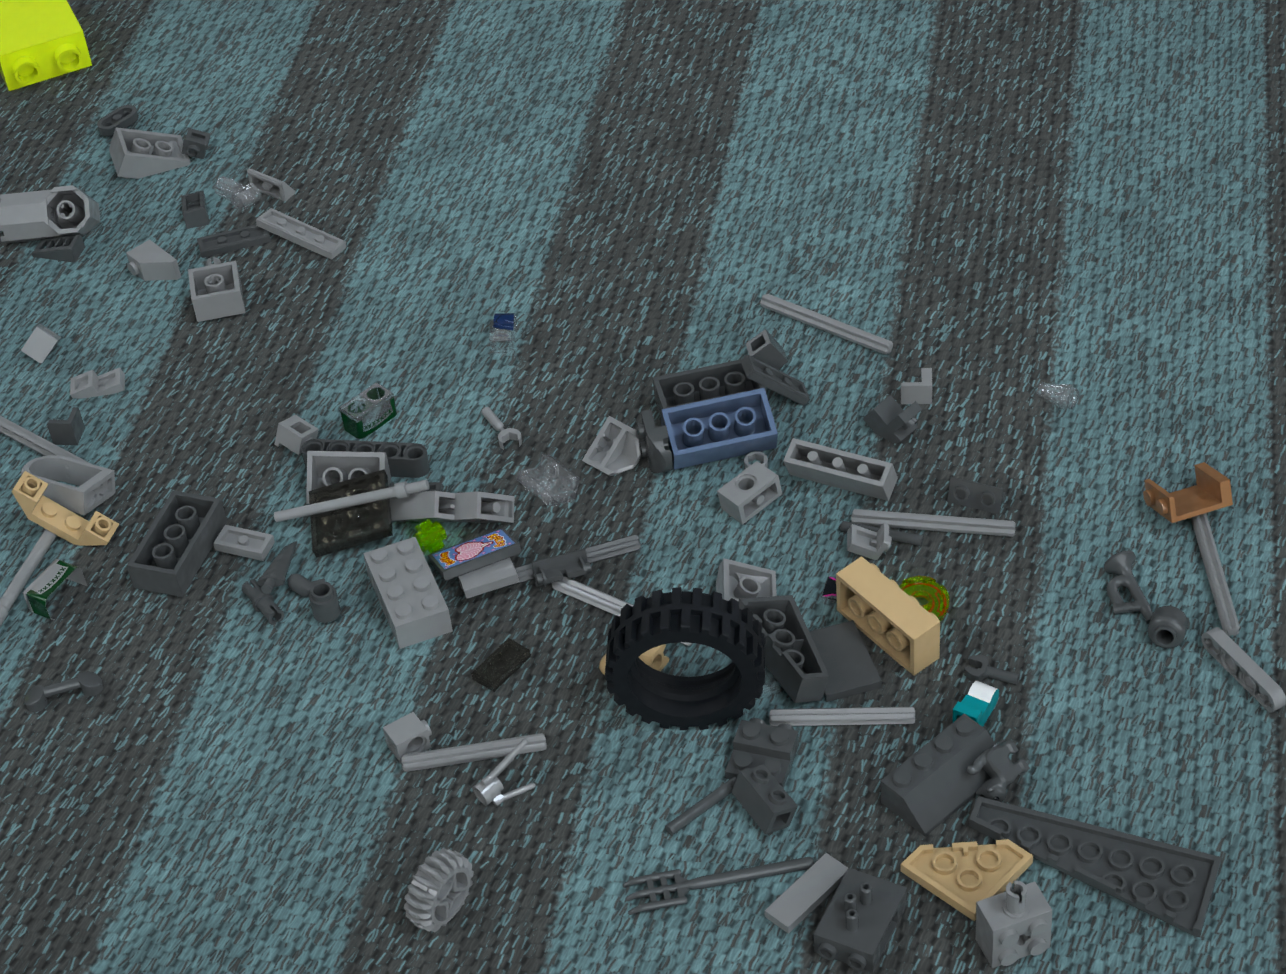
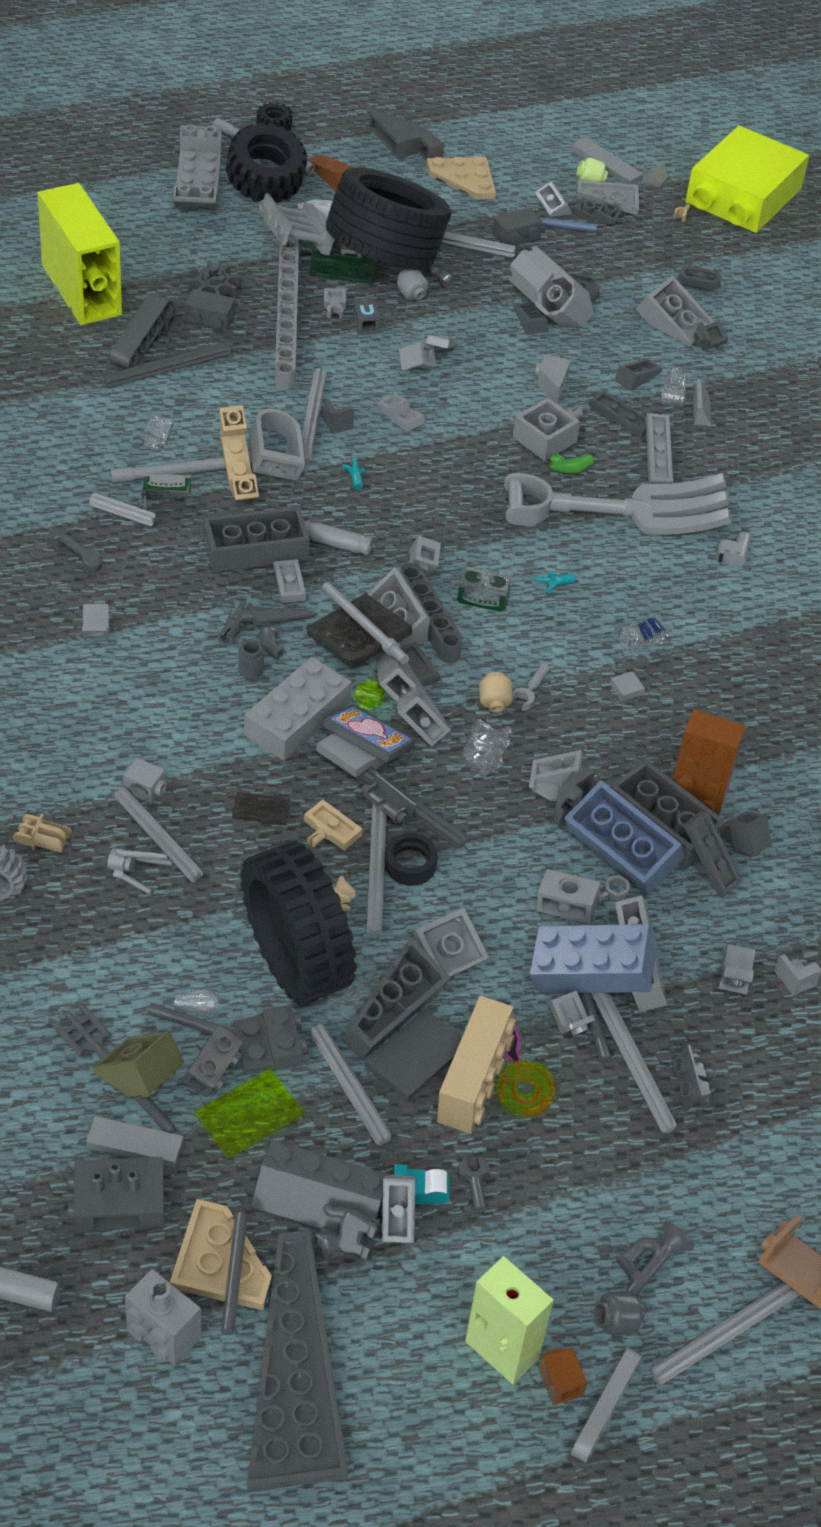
camera: 50 degrees right, 5 degrees up
(23, 97) = (682, 212): none -> tan hand
(39, 316) = (441, 341): none -> light grey tile
(42, 635) = (123, 509): none -> light grey axle
(147, 445) = (355, 473): none -> teal bar
(175, 705) = (95, 621): none -> light grey bracket
(228, 482) = (339, 538): none -> light grey axle
(266, 298) = (572, 465): none -> bright green arm
(353, 272) = (653, 507): none -> light grey piece
(393, 363) = (555, 580): none -> teal bar
(411, 839) = (42, 833): none -> tan arm
(453, 237) = (734, 551): none -> light grey piece
(493, 450) = (495, 692): none -> tan head
(548, 367) = (627, 686): none -> light grey tile
(558, 622) = (331, 825): none -> tan plate
(633, 566) = (414, 875): none -> black tyre
(690, 787) = (198, 1002): none -> clear cone
(692, 328) = (708, 758): none -> dark orange brick
(733, 851) = (140, 1063): none -> olive slope
(828, 800) = (249, 1113): none -> clear neon green tile
(834, 495) = (594, 958): none -> sand blue brick
(993, 861) = (234, 1274): none -> dark grey bar
(998, 719) = (398, 1208): none -> light grey brick
(1158, 680) = (508, 1319): none -> yellowish green brick
(1203, 685) = (562, 1375): none -> dark orange brick

